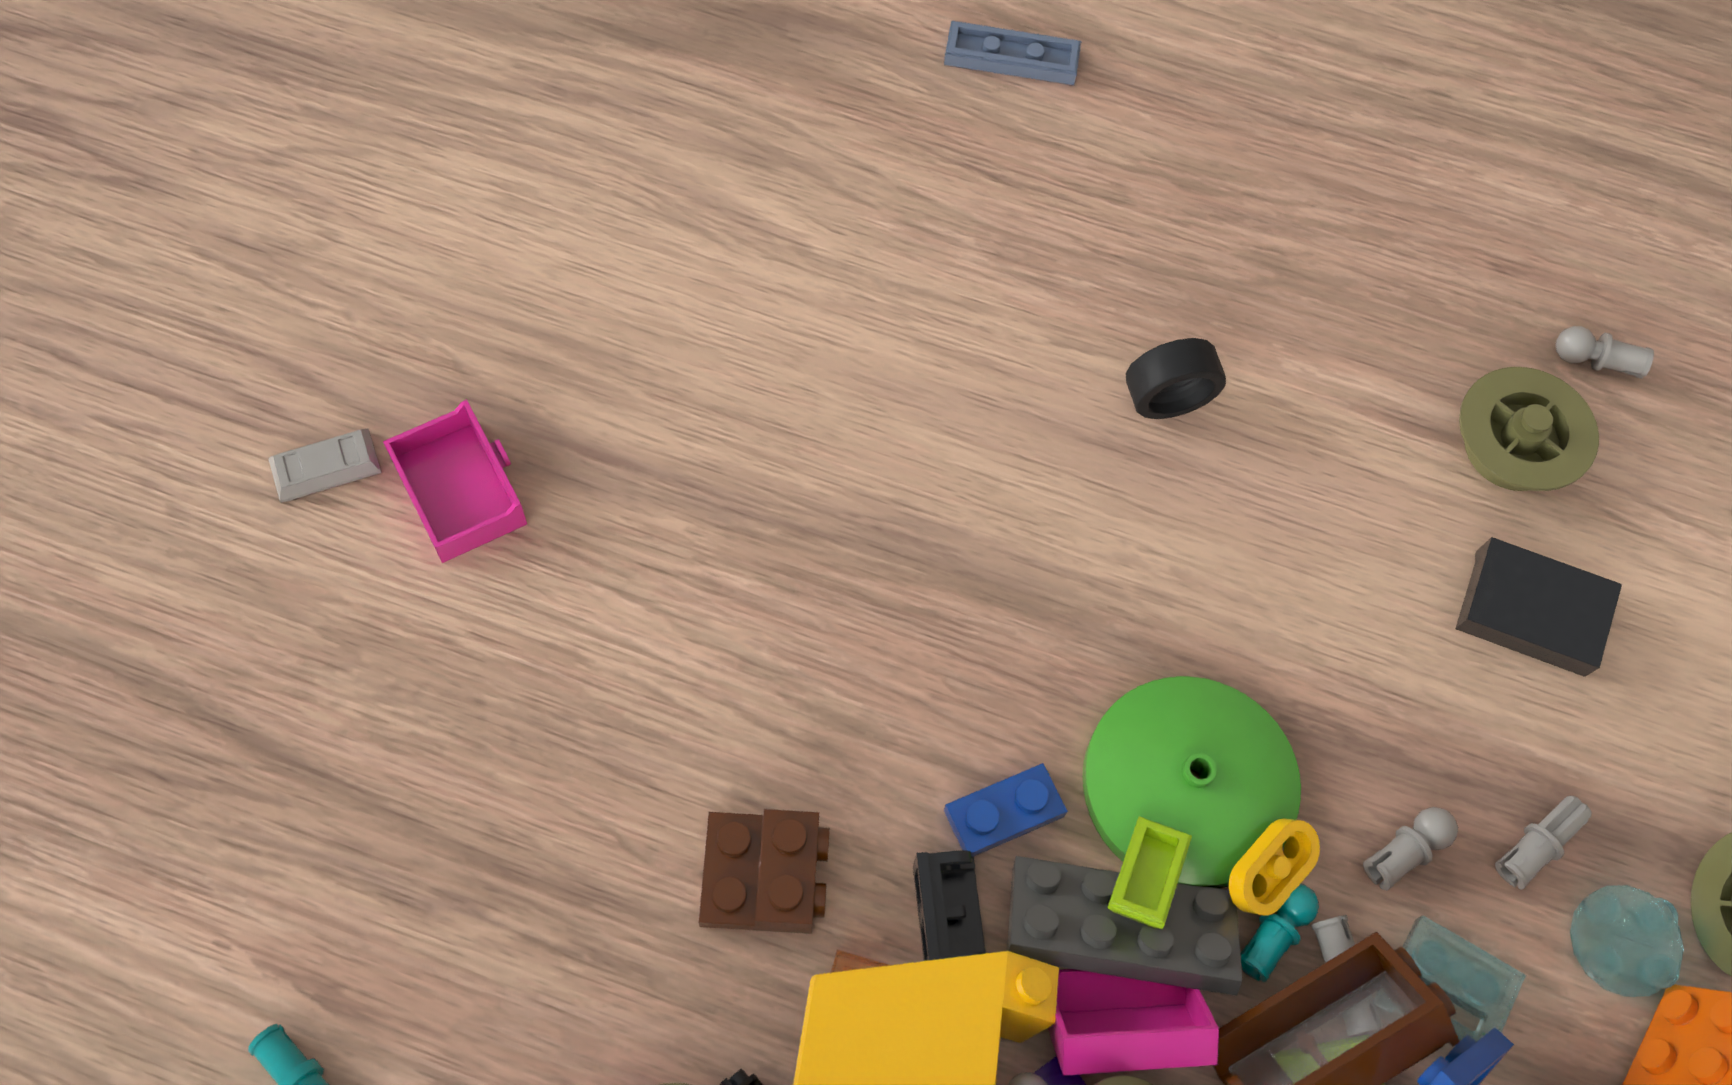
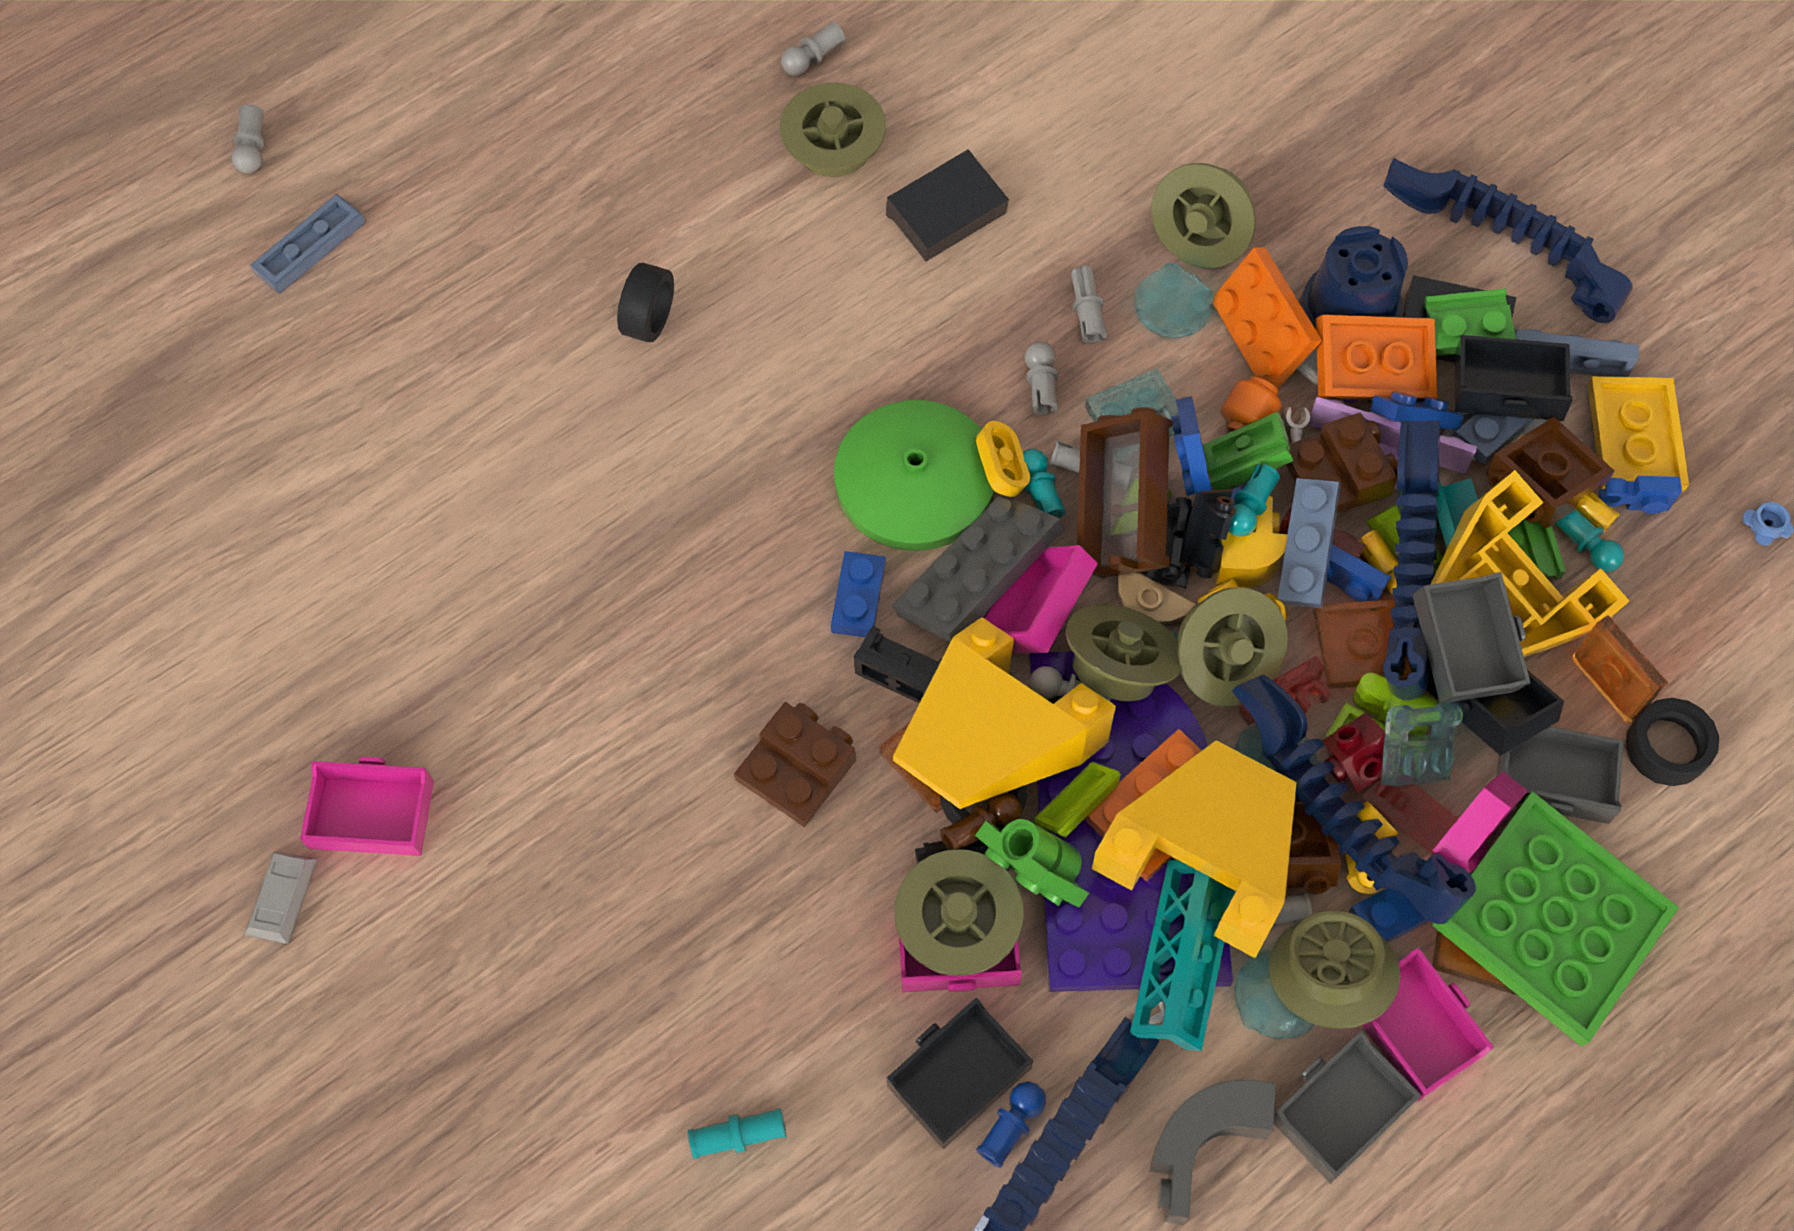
camera: 50 degrees left, 0 degrees up
(1150, 873) = (960, 528): lime tile -> none

